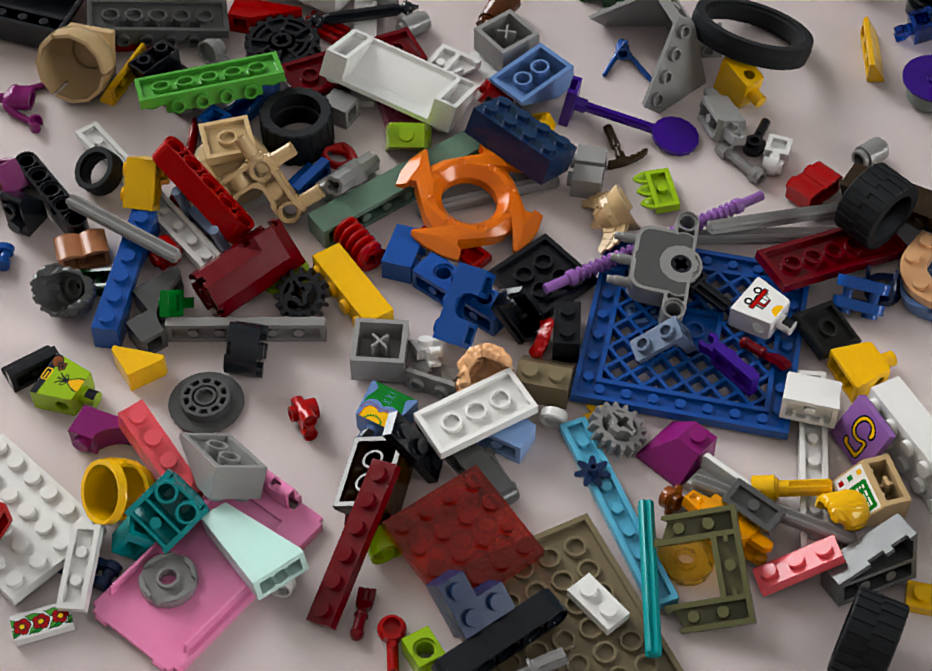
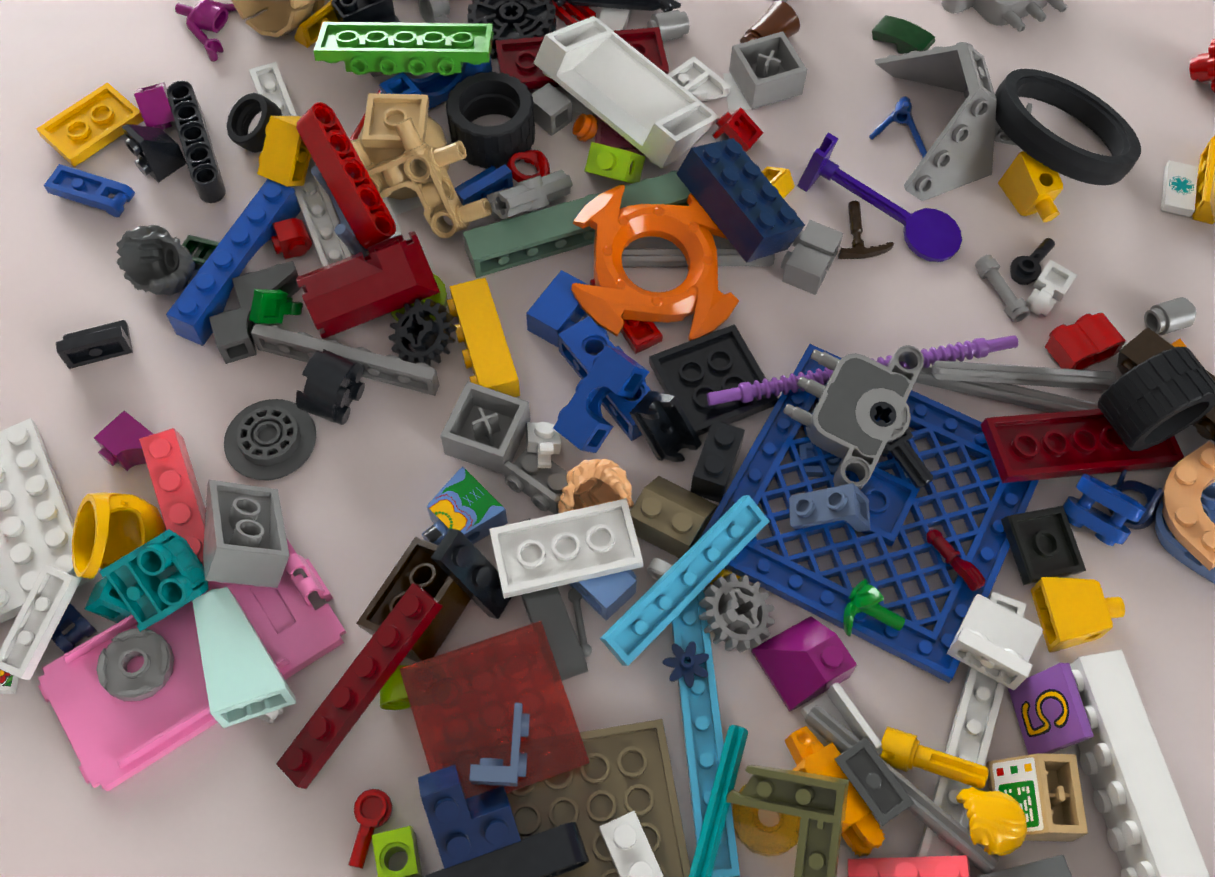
camera: 15 degrees right, 10 degrees up
(65, 387) = (117, 379): lime torso -> none
(83, 250) = (201, 214): nougat brick -> none
(124, 228) = (246, 202): light grey axle -> none
(139, 366) = (208, 376): yellow slope -> none
(306, 414) = (370, 485): red plate -> none
(359, 244) = (510, 283): red piece -> none
(364, 603) = (353, 761): dark red piece -> none
(374, 116) = (585, 127): none -> orange plate
(485, 568) = (492, 770): none -> sand blue bracket
(535, 76) = (784, 122): medium blue slope -> none
(542, 339) = (684, 464): red piece -> none
(572, 414) = (684, 580): none -> medium azure plate
(611, 215) = (820, 322): tan helmet -> none
(659, 190) = (891, 301): lime plate -> none
(671, 499) = (775, 728): dark orange plate -> none
(706, 395) = (866, 599): none -> green plant
(721, 118) = (995, 227): light grey hinge -> none
(730, 365) = (904, 562): dark purple plate -> none
(761, 311) = (968, 501): white torso -> none
(851, 61) = (1179, 188): none -> white tile

